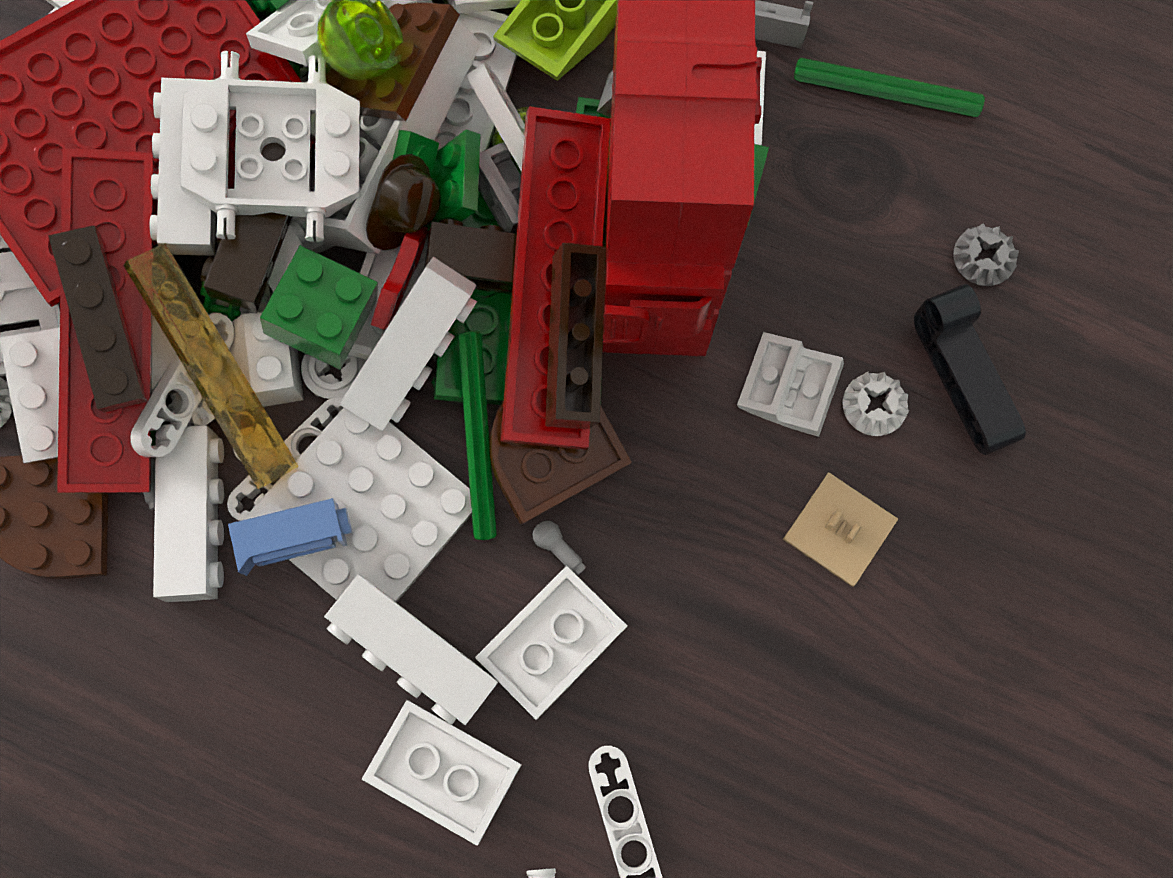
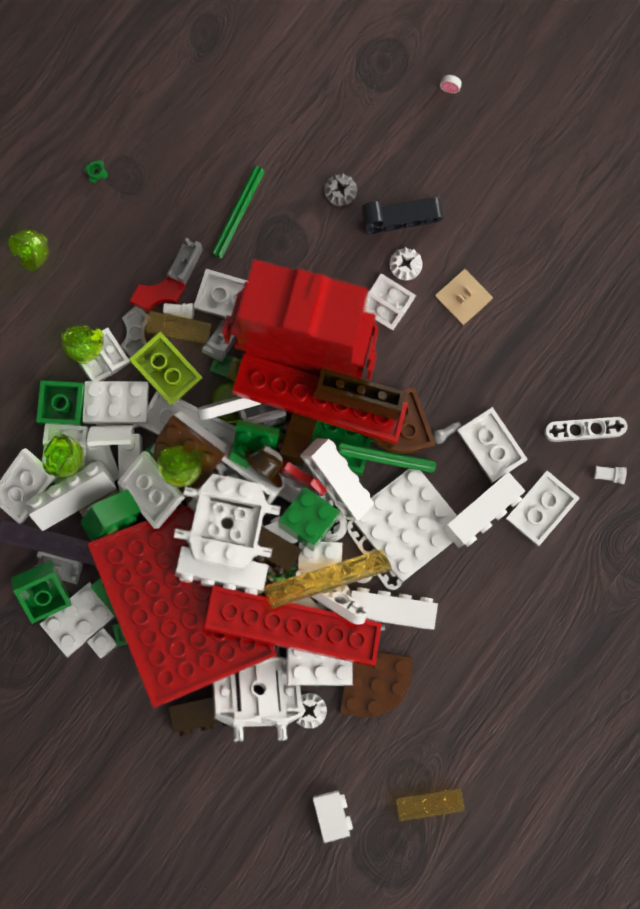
camera: 75 degrees left, 5 degrees up
(97, 318) = (299, 624): dark brown brick -> none
(288, 534) = (418, 556): medium blue window -> none

